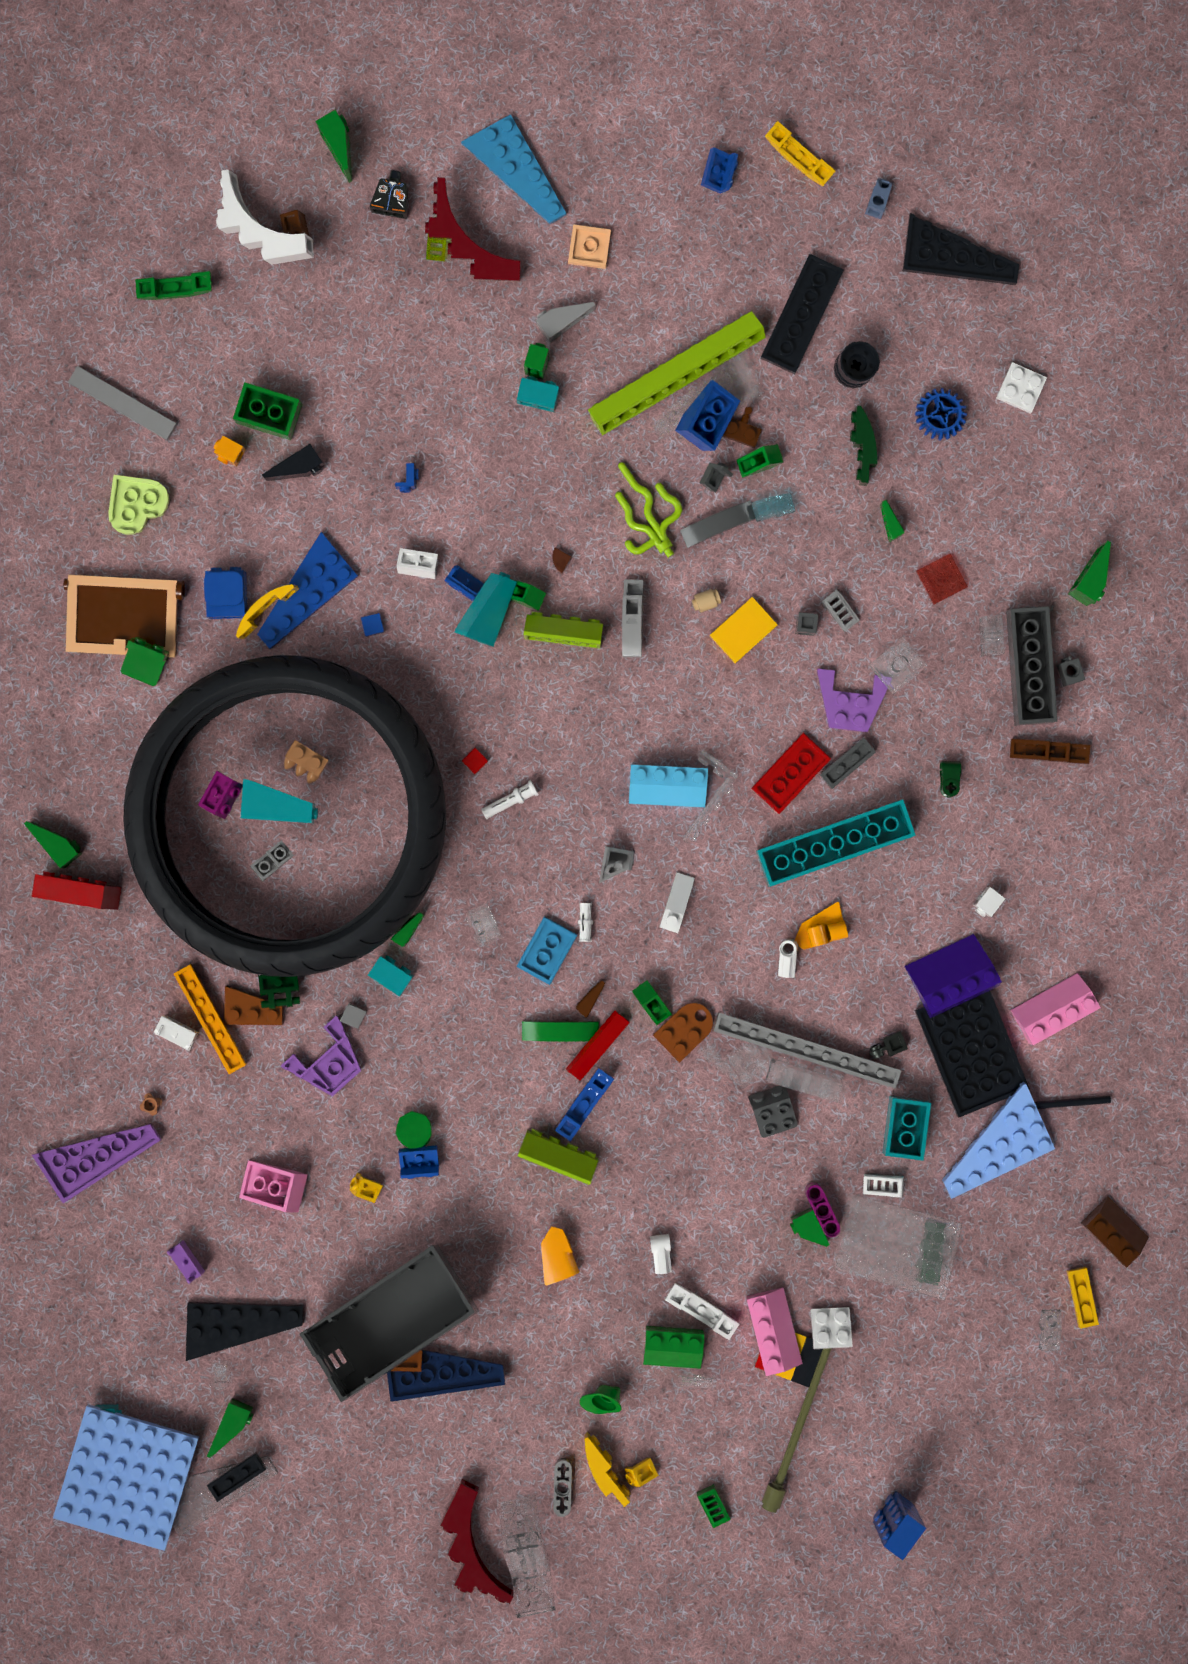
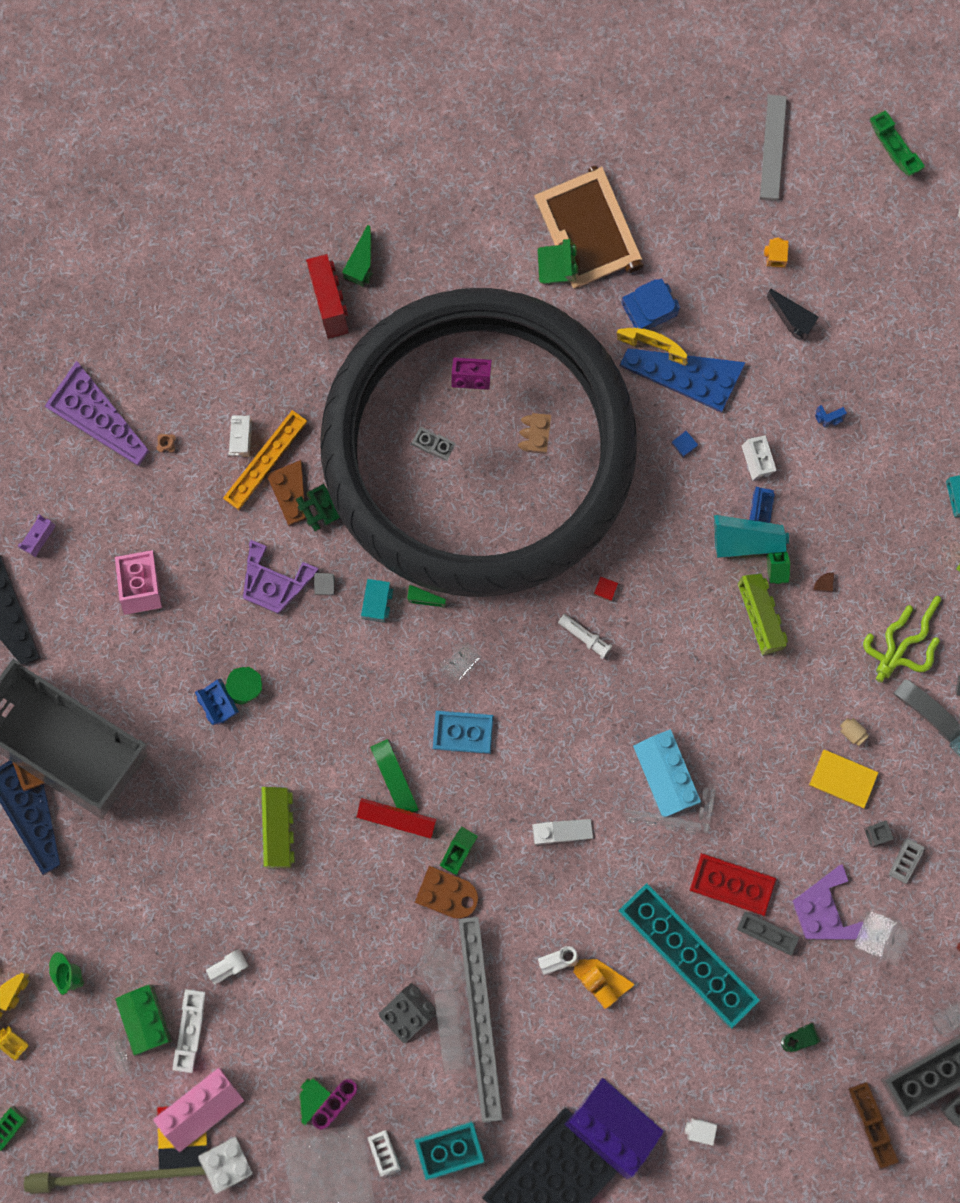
camera: 70 degrees right, 10 degrees down
(135, 502) = (692, 195): yellowish green plate -> none
(267, 411) = (828, 269): green brick -> none
(269, 804) = (483, 421): teal slope -> none
(365, 1188) = (171, 665): yellow bracket -> none
(557, 1257) = (183, 869): light orange panel -> none
(584, 1104) = (336, 830): blue slope -> none
(585, 922) = (505, 755): white pin -> none
(586, 1004) = (431, 790): reddish brown slope -> none
(615, 862) = (573, 757): light grey slope -> none
(632, 618) = (804, 670): light grey slope -> none
(893, 1044) = (523, 1101): pearl dark grey plate -> none

